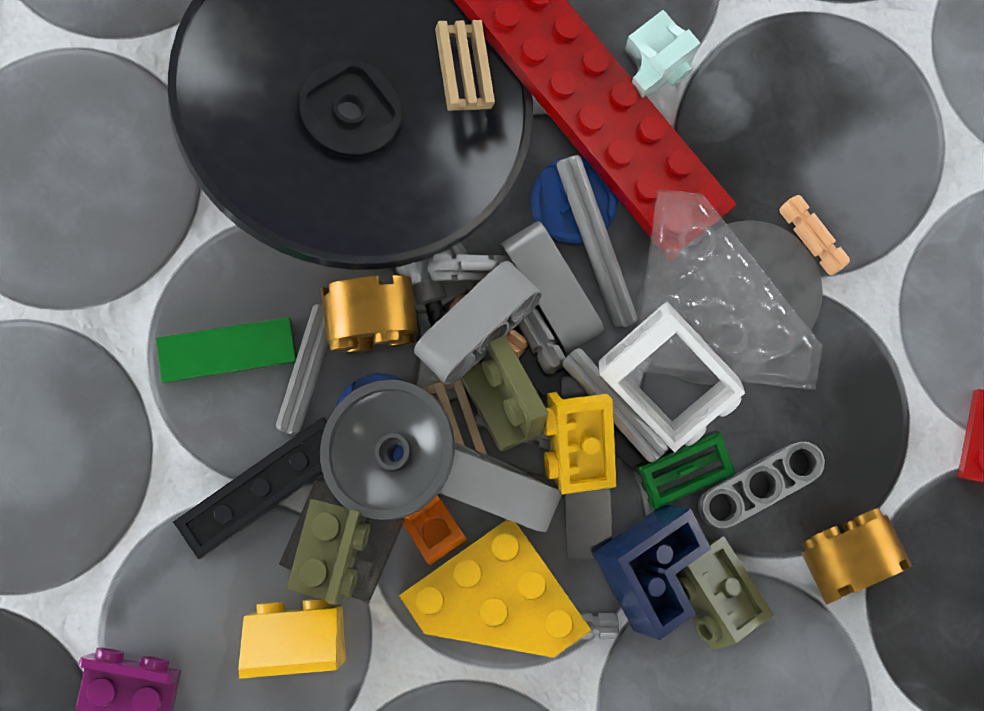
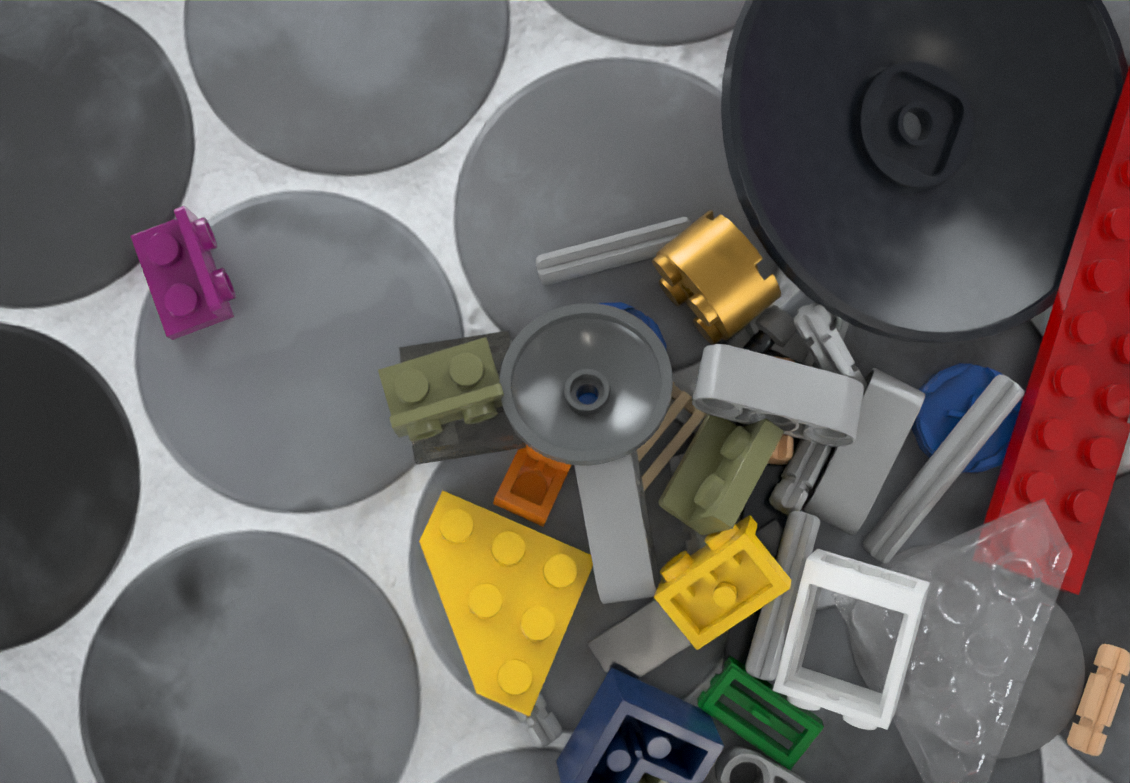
camera: 55 degrees right, 0 degrees up
(226, 350) = (584, 158): green tile -> none
(253, 492) = (456, 276): black tile -> none
(292, 640) = (329, 408): yellow slope -> none
(461, 32) = (1071, 188): tan tile -> none

